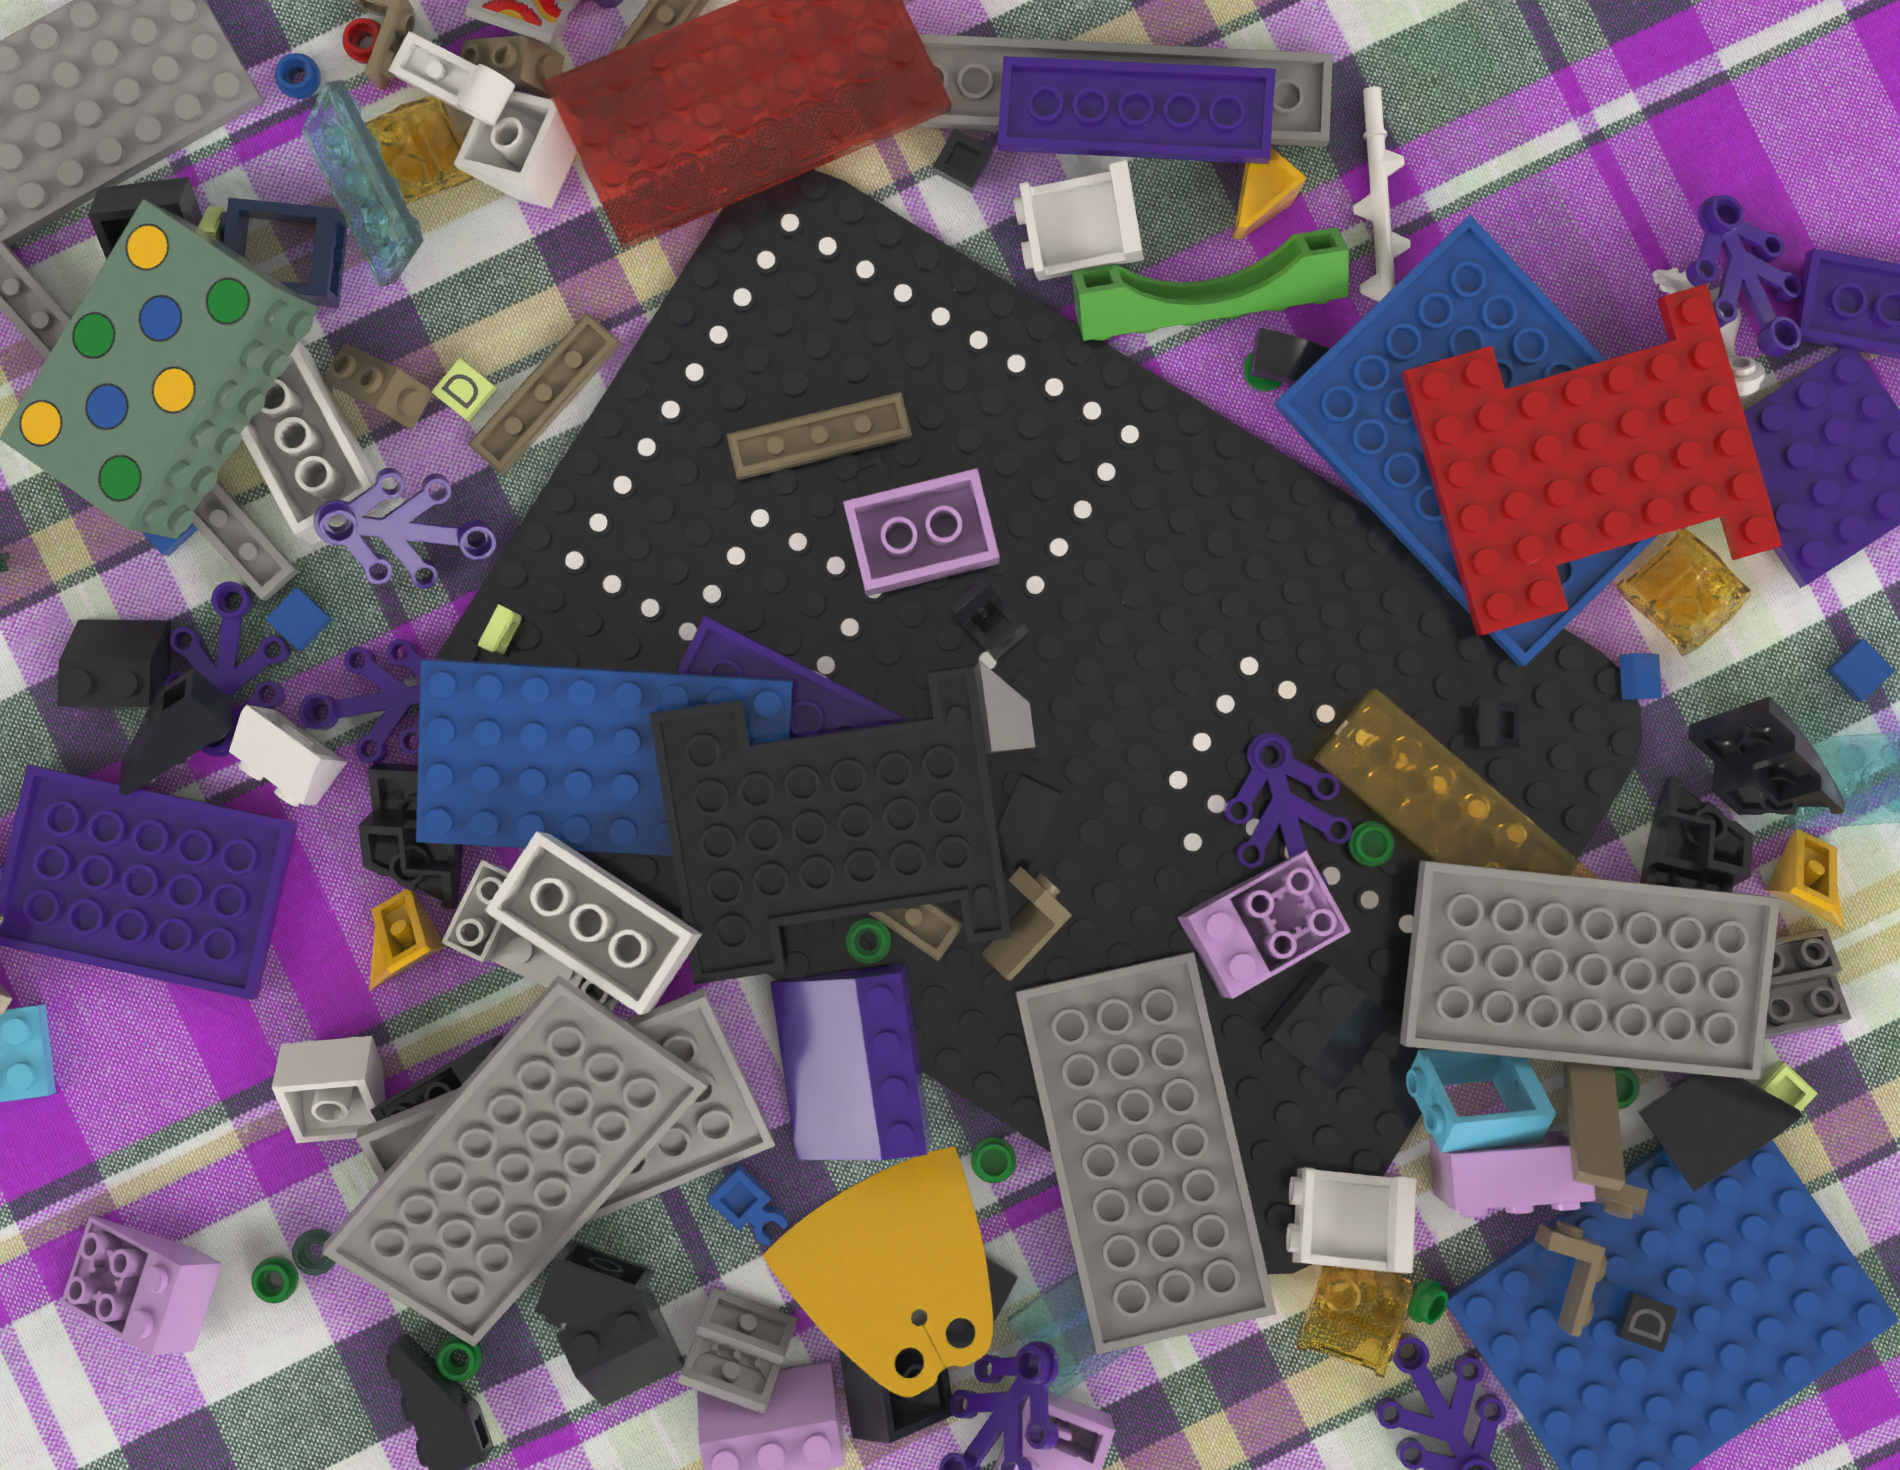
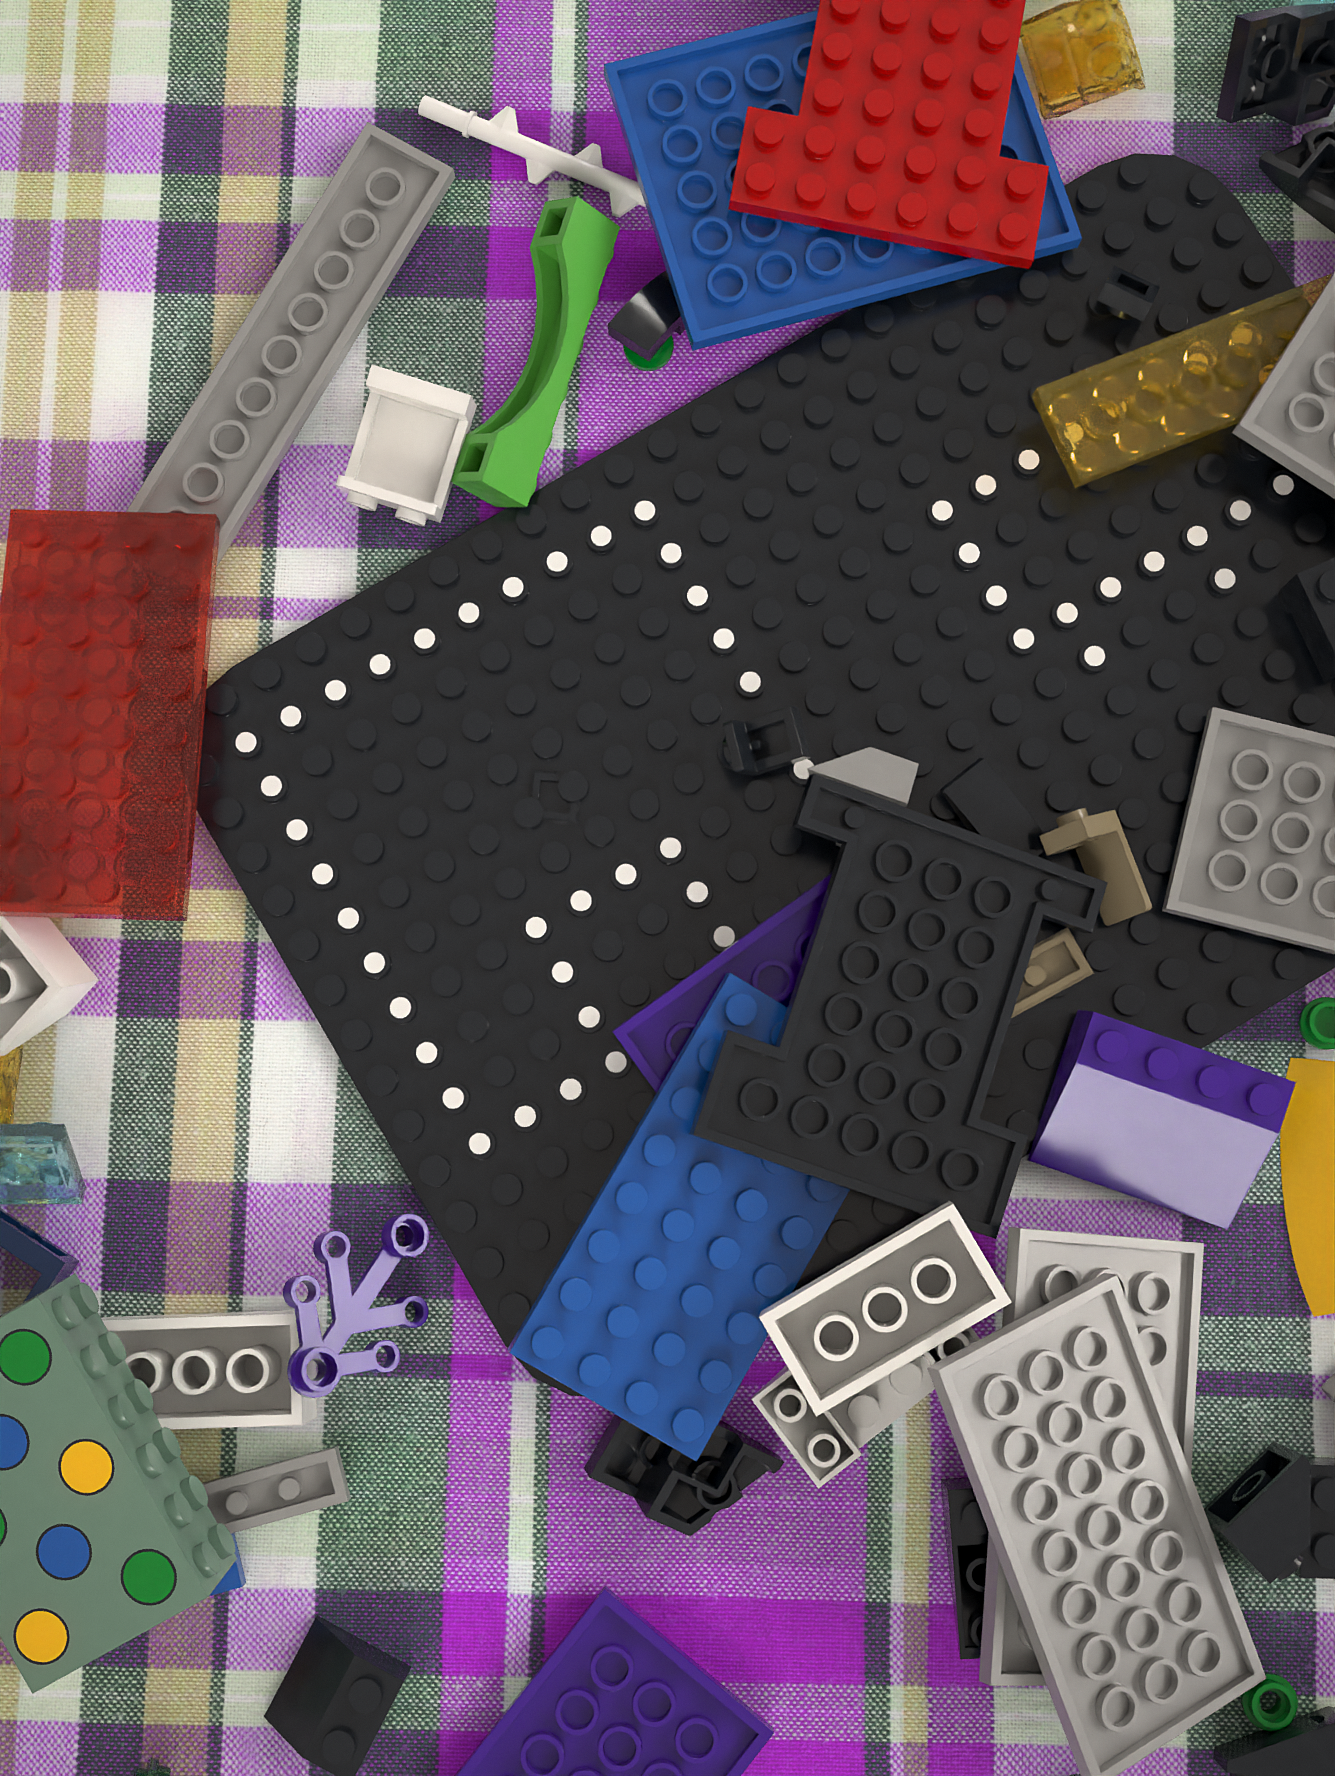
camera: 55 degrees left, 5 degrees down
(177, 725) = (441, 1664): black slope -> none
(225, 672) = (410, 1585): dark purple plant -> none
(284, 755) = (530, 1560): white slope -> none
(299, 619) = (388, 1472): blue tile -> none
(329, 1087) = (912, 1694): white slope -> none
(378, 385) = (185, 1258): dark tan bracket -> none
(394, 700) = (530, 1409): dark purple plant -> none
(401, 937) = (786, 1535): yellow slope -> none
(464, 390) = (238, 1170): yellowish green tile -> none
(500, 630) = (516, 1256): yellowish green tile -> none
(545, 394) = (287, 1087): dark tan tile -> none
(744, 1200) = (1246, 1305): blue plate -> none
(819, 436) = (483, 822): dark tan tile -> none
(857, 951) = (1052, 1030): green plate -> none
(922, 532) = (641, 763): lavender brick -> none
(962, 160) = (277, 536): black plate -> none
(1136, 109) = (322, 334): dark purple plate -> none
(1264, 925) = (1220, 624): lavender slope -> none
(1266, 193) = (464, 252): yellow slope -> none
(1284, 806) = (1110, 546): dark purple plant -> none
(1371, 843) = (1186, 478): green plate -> none
(1640, 676) = (1145, 138): blue tile -> none

